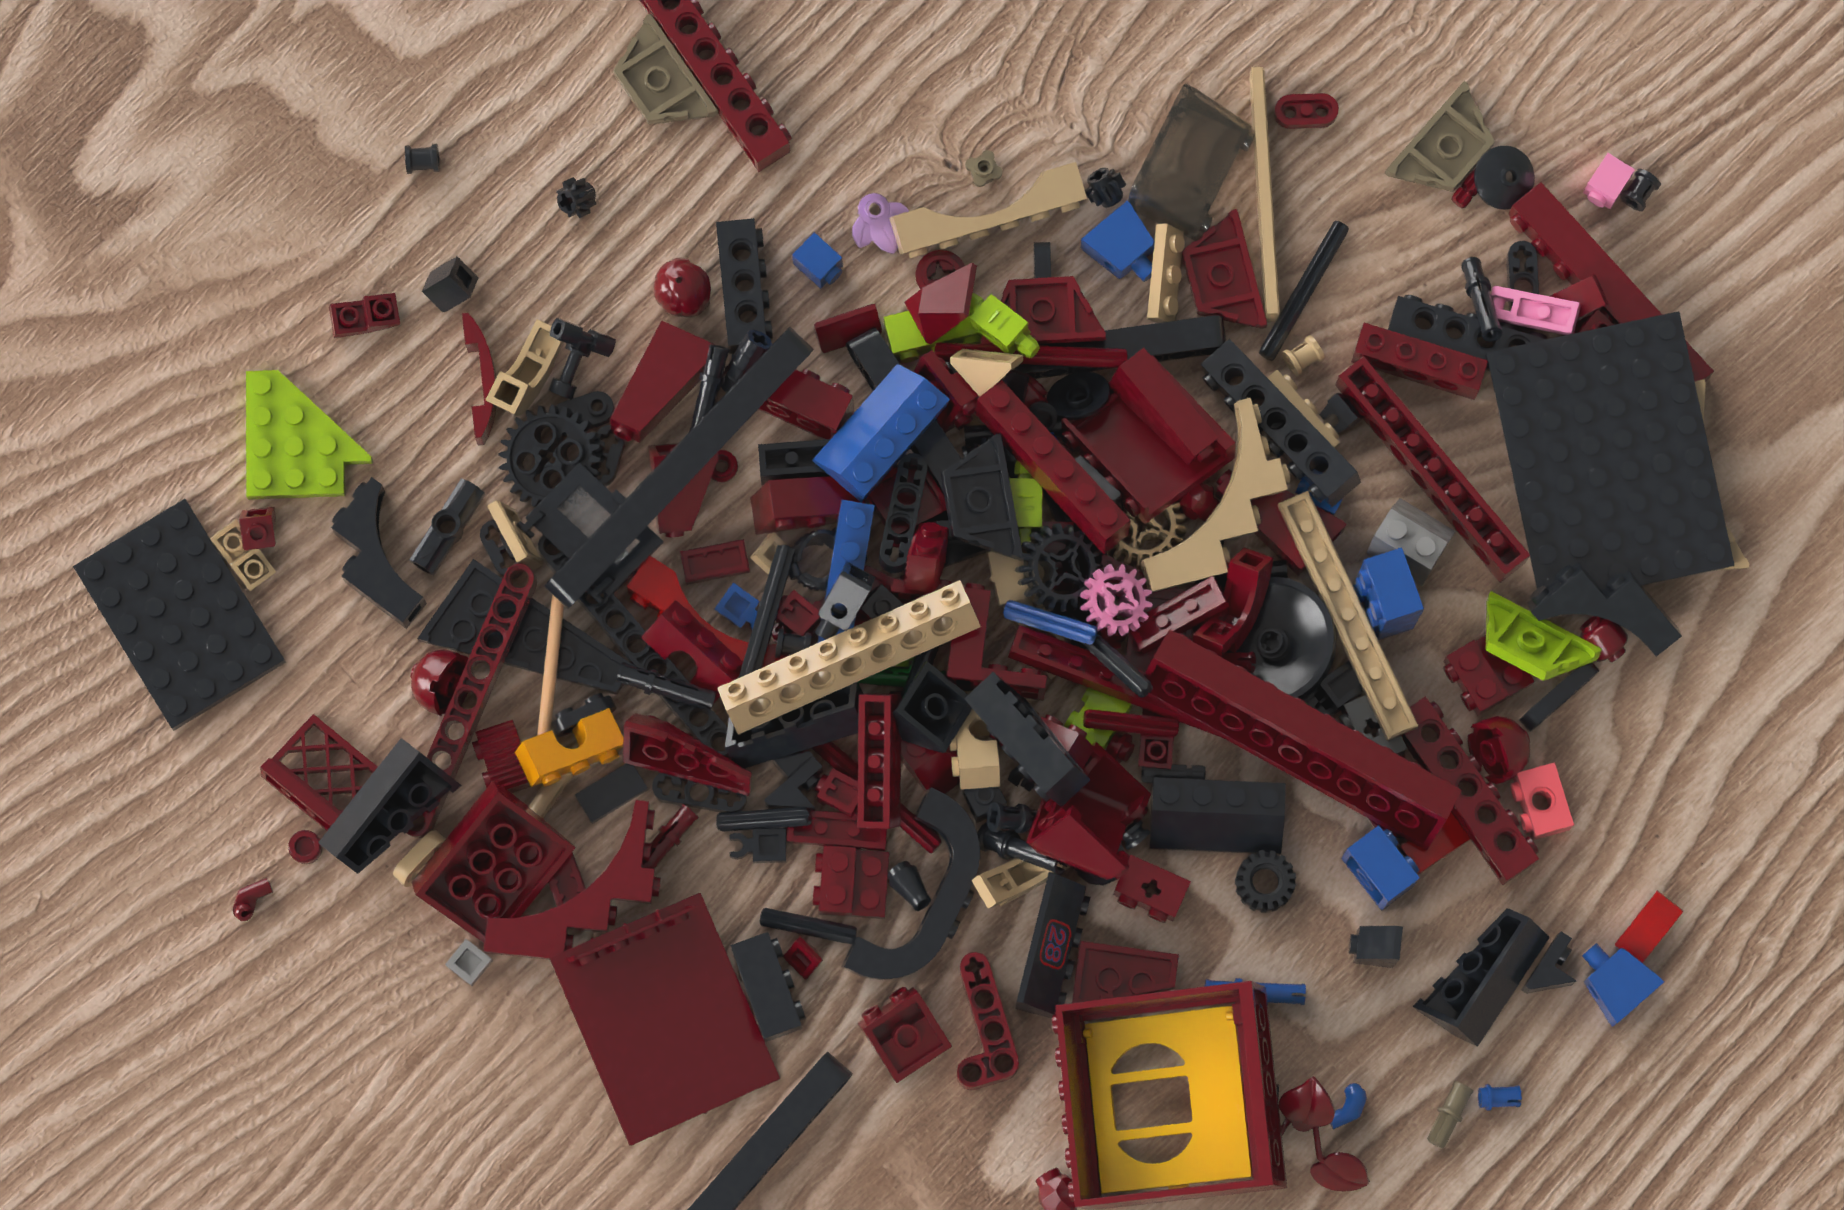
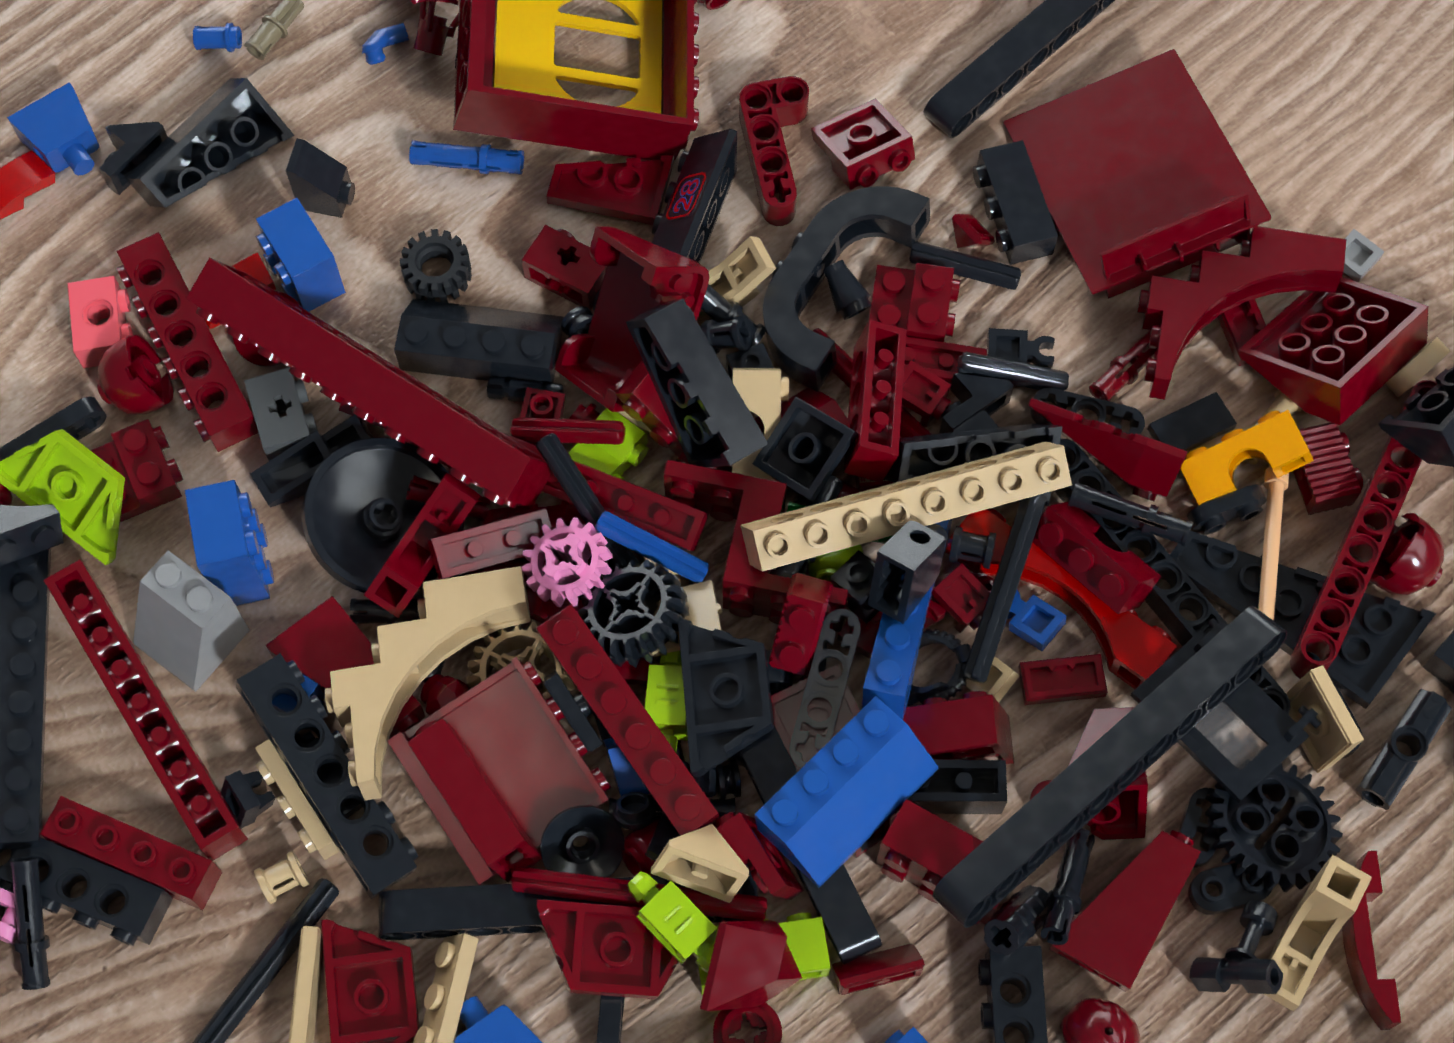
camera: 175 degrees left, 10 degrees down
(1348, 616) = (285, 535): tan tile -> none

